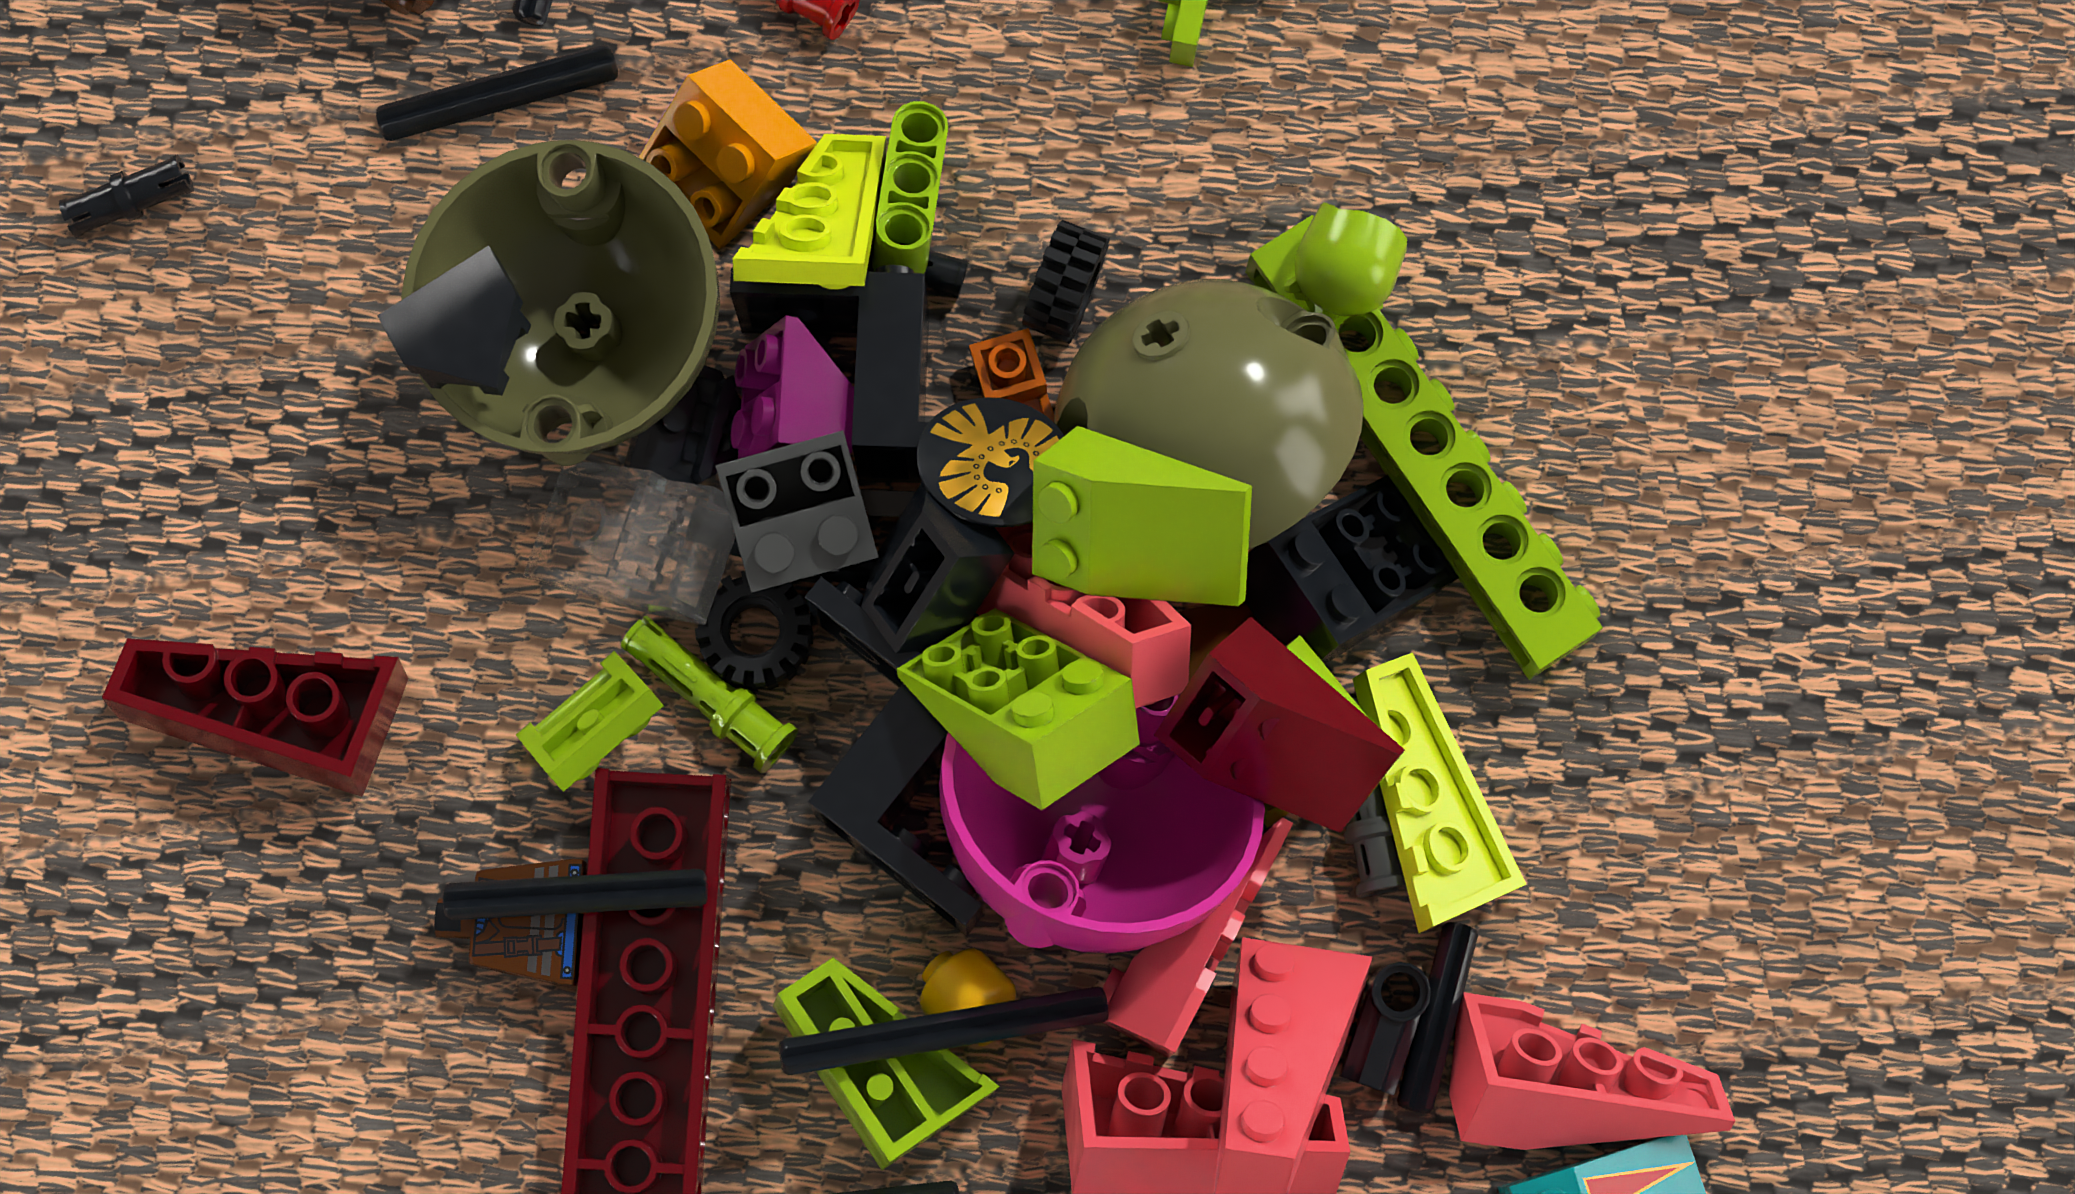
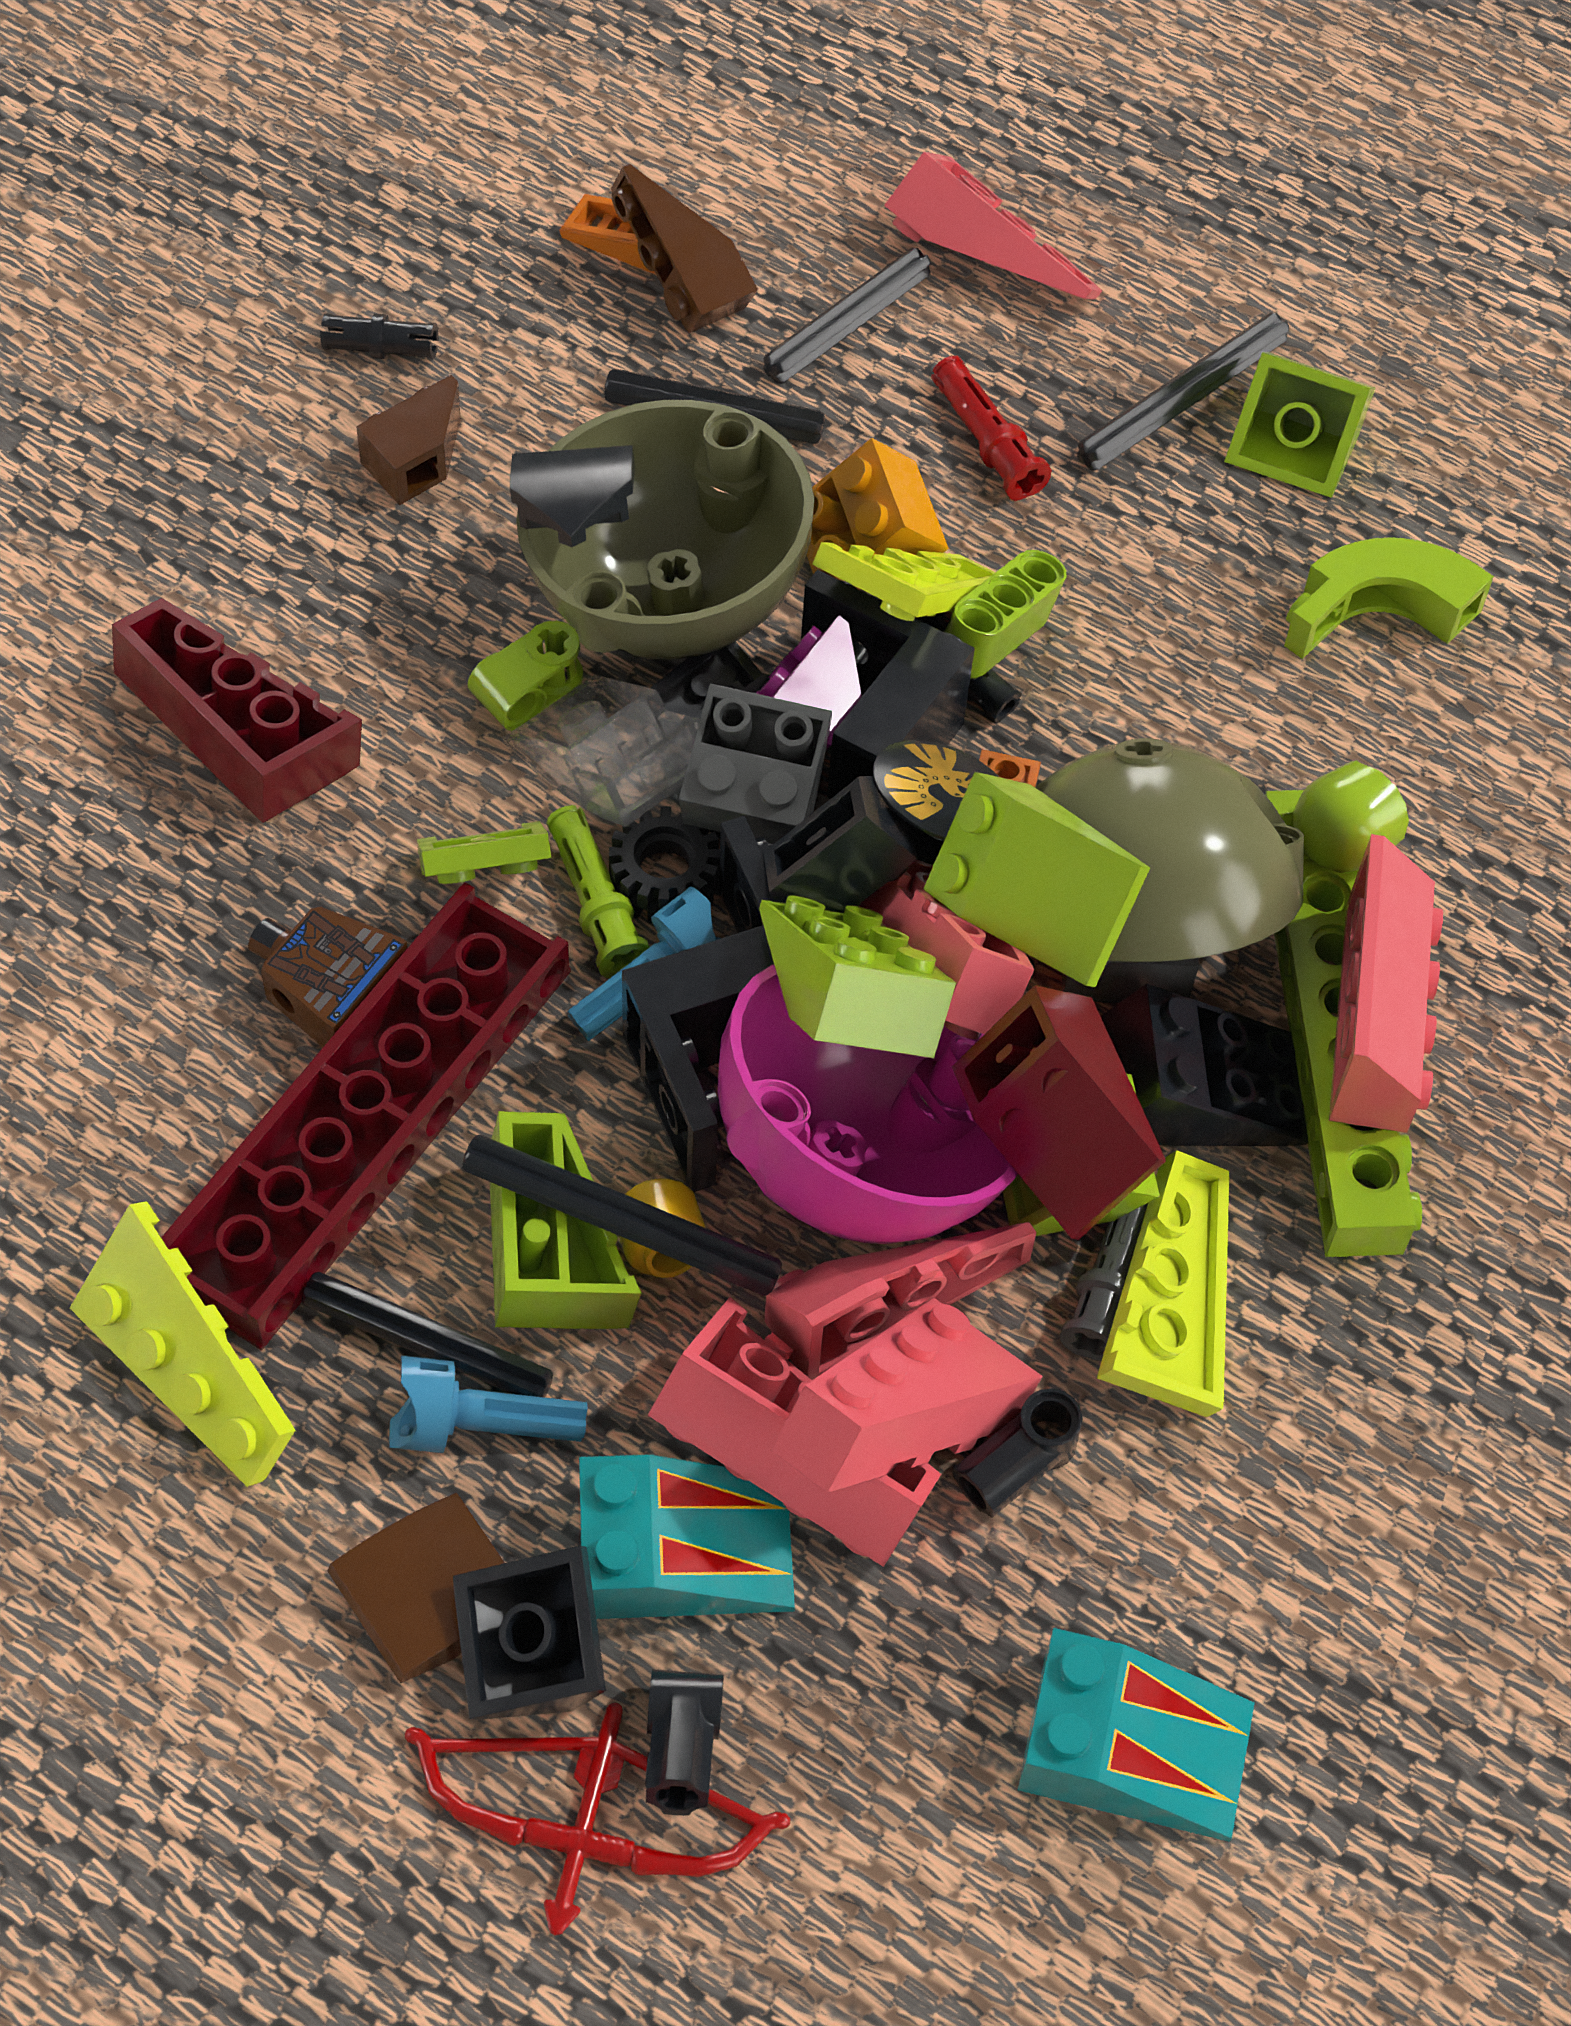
camera: 30 degrees right, 20 degrees down
(239, 303) = (412, 441): none -> reddish brown slope
(508, 511) = (525, 680): none -> lime piece
(575, 894) = (384, 957): black axle -> none
(826, 705) = (679, 926): none -> dark azure piece
(1065, 281) = (1092, 722): black tyre -> none
(1438, 1020) = (1073, 1478): black axle -> none
(1471, 425) = (1385, 993): none -> coral slope
(1547, 1088) = (1130, 1578): coral wedge -> none

